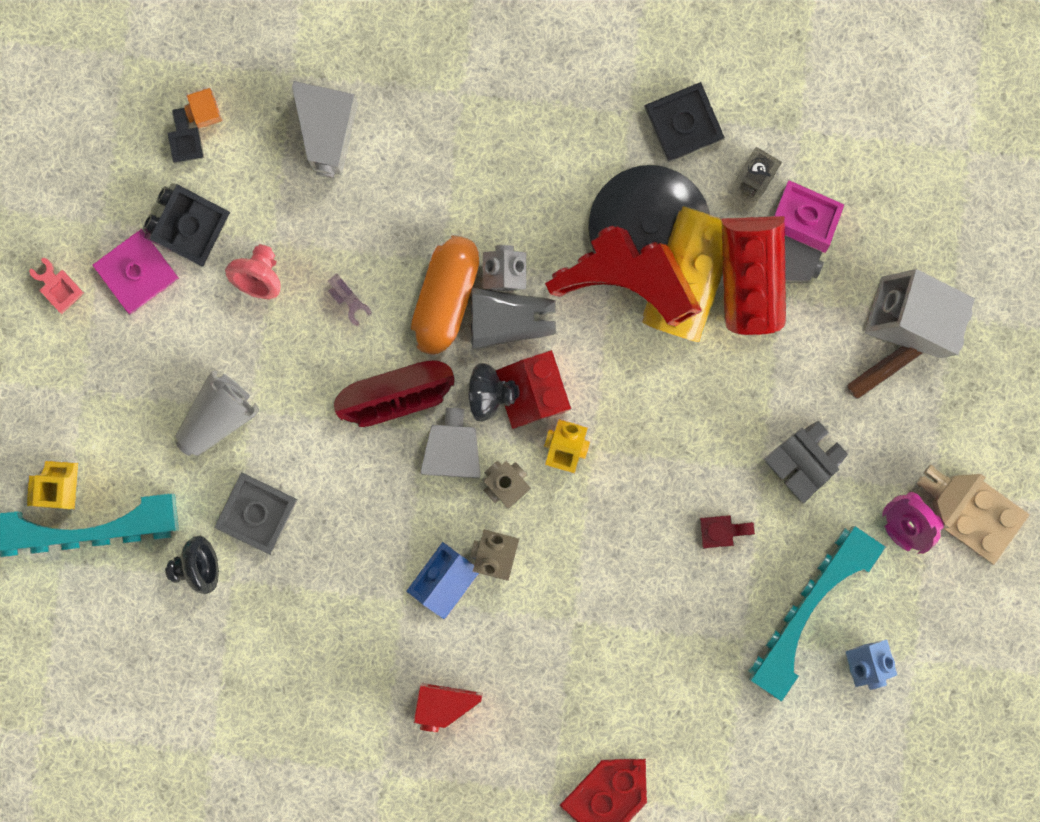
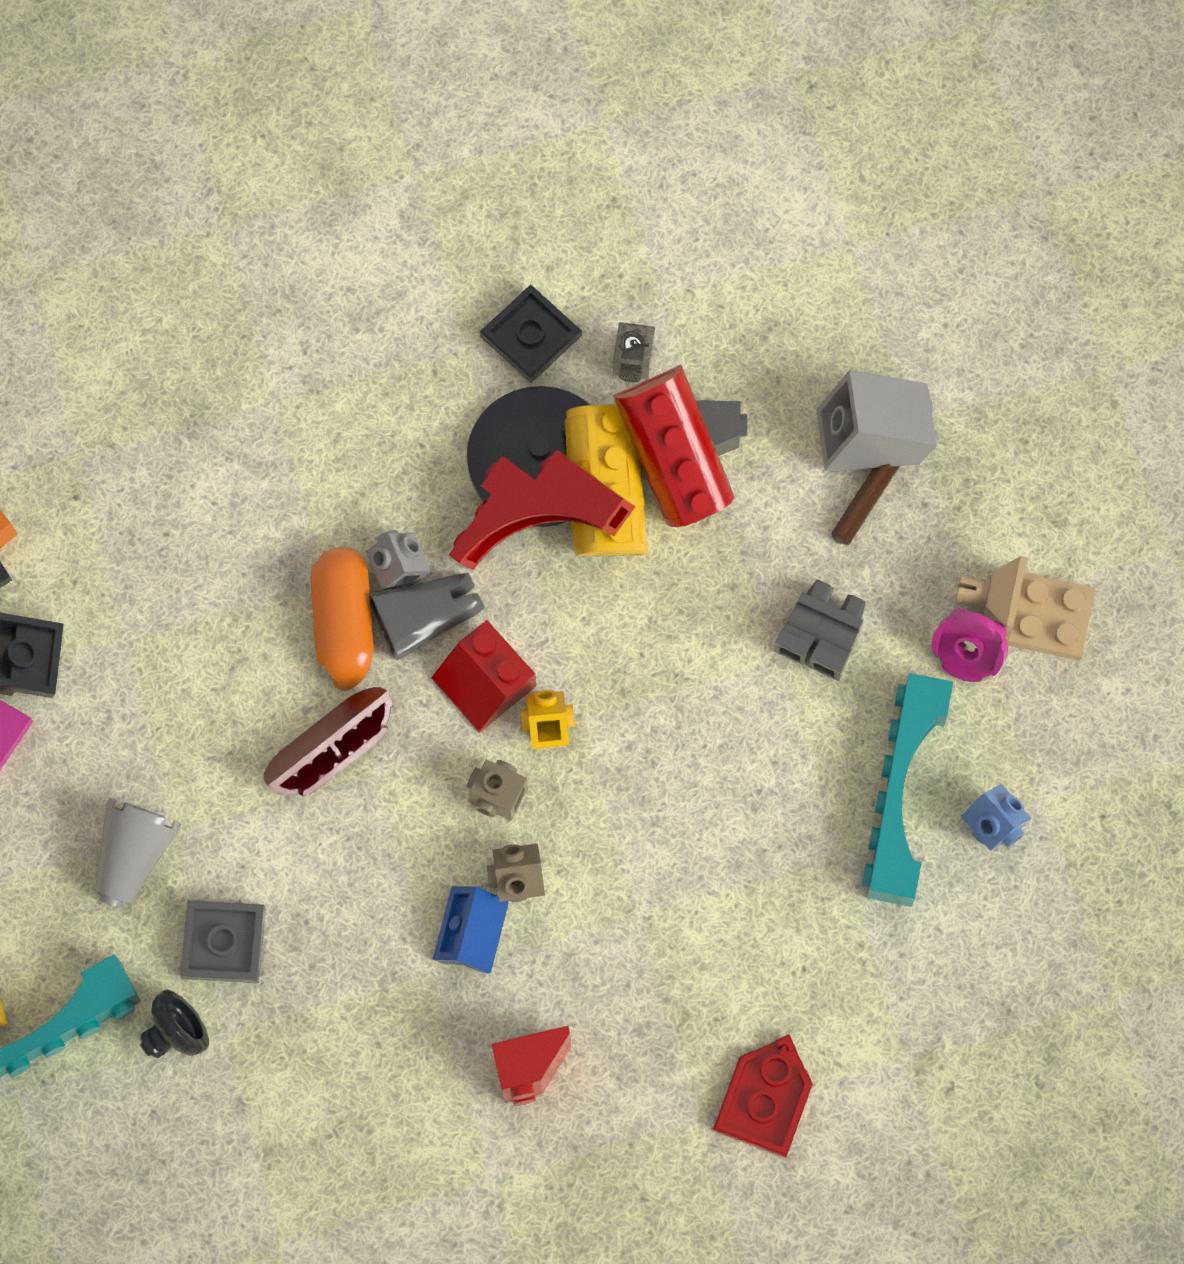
camera: 20 degrees left, 15 degrees down
(255, 274) = (117, 677): coral hair -> none
(326, 126) = (134, 483): light grey slope -> none
(343, 293) = (227, 658): plate -> none
(452, 448) = (420, 778): light grey torso -> none
(488, 392) = (435, 695): black hair -> none
(719, 531) = (762, 747): dark red plate -> none
(809, 216) = (712, 371): dark pink plate -> none

